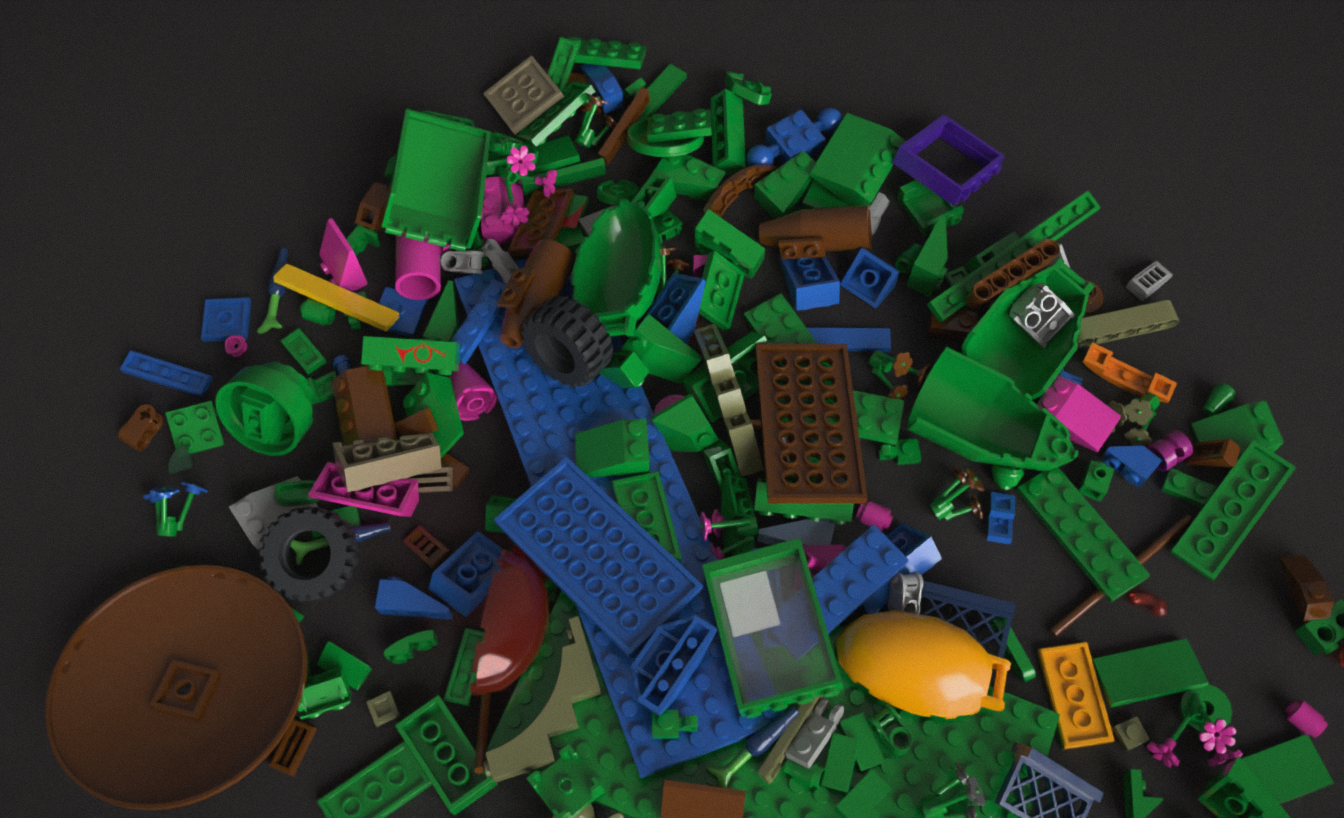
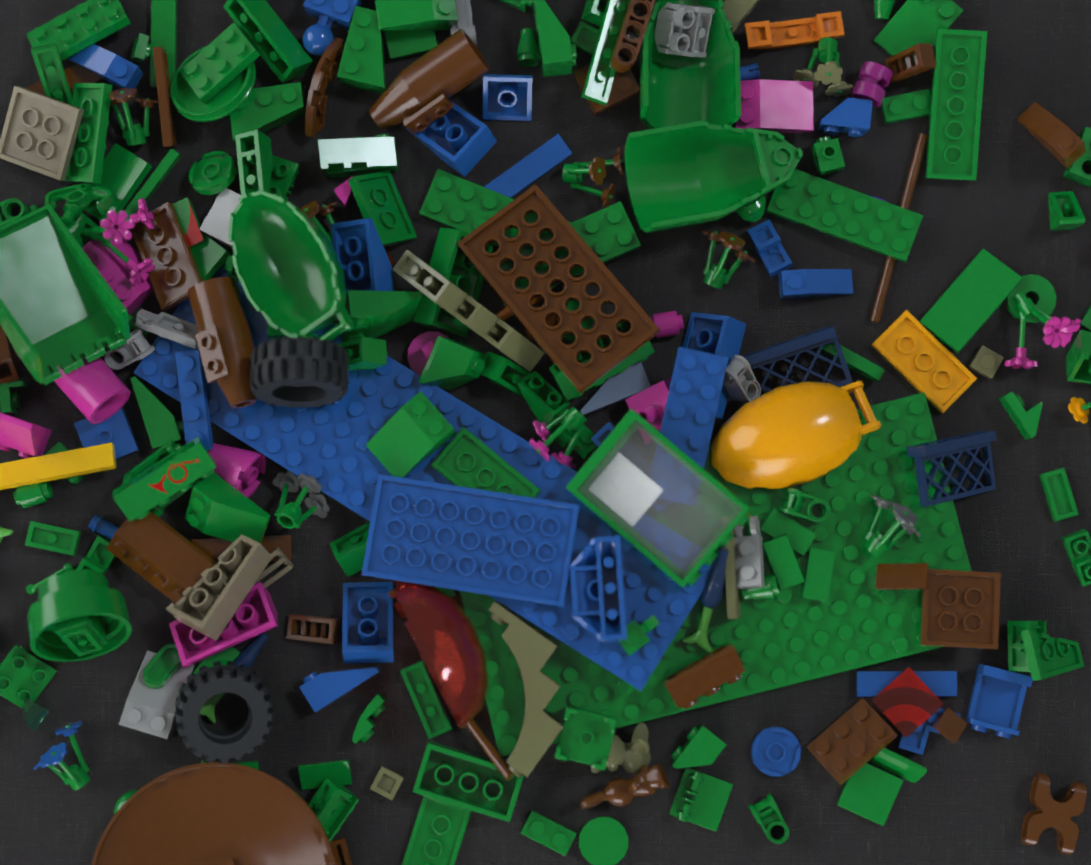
camera: 40 degrees left, 20 degrees up
(418, 423) = (220, 537): reddish brown tile -> none
(498, 430) = (290, 514): none -> plant
(904, 452) = (651, 246): green plate -> none
(1020, 567) = (814, 283): none -> blue slope
(1158, 604) = (936, 234): clear red arm -> none
(1279, 658) = (1064, 211): none -> green slope

